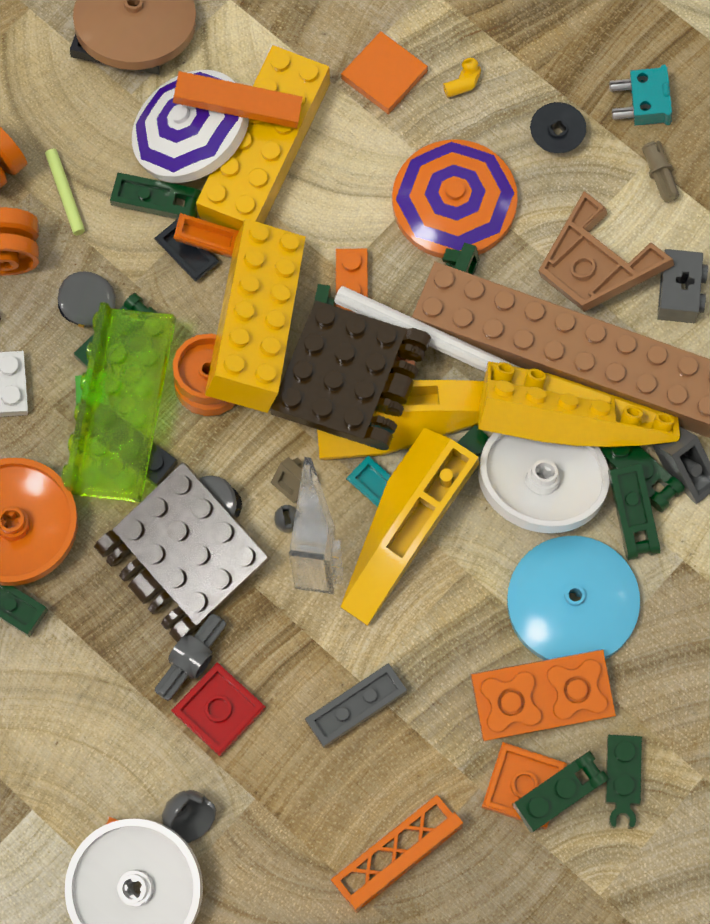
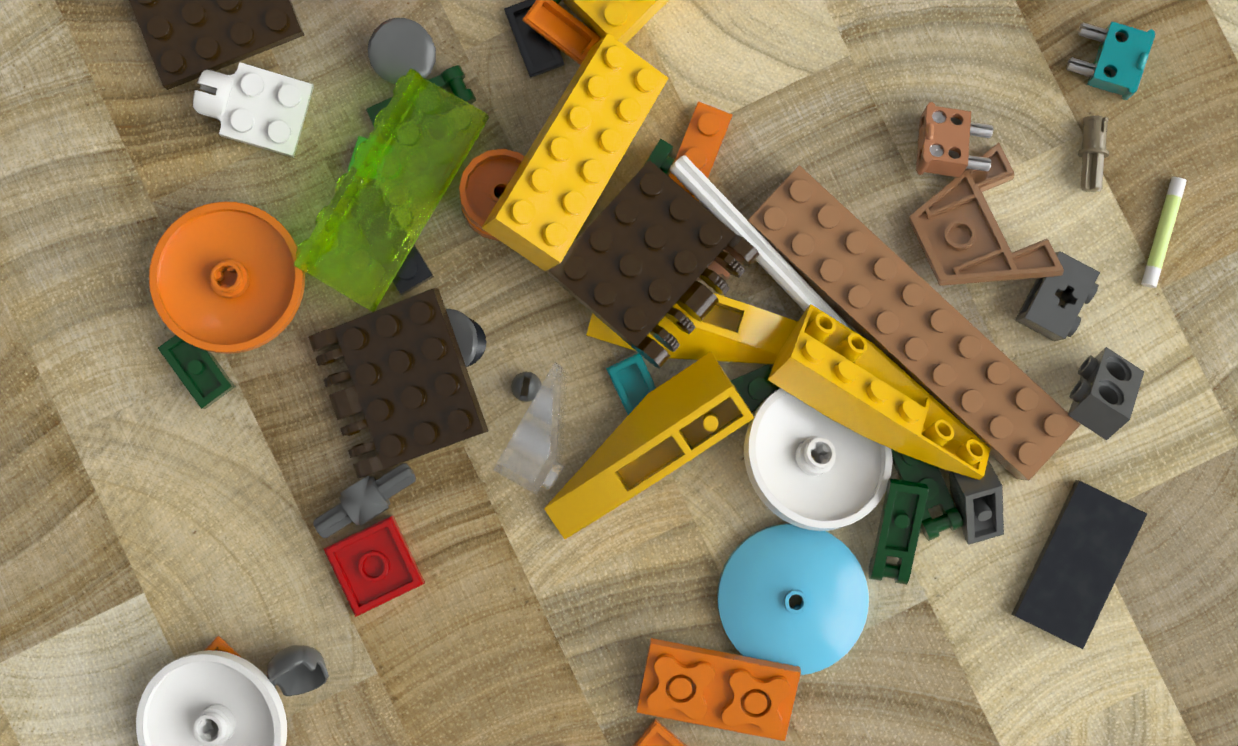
camera: 15 degrees right, 15 degrees up
(288, 478) = (546, 347): dark tan tile -> none
(356, 705) = (518, 622): dark grey plate -> none
(454, 197) = (852, 93): dish -> none
(463, 260) = (830, 174): dark green tile -> none
(542, 205) = (945, 142): none -> nougat piece
(562, 116) = (1017, 52): black piece -> none

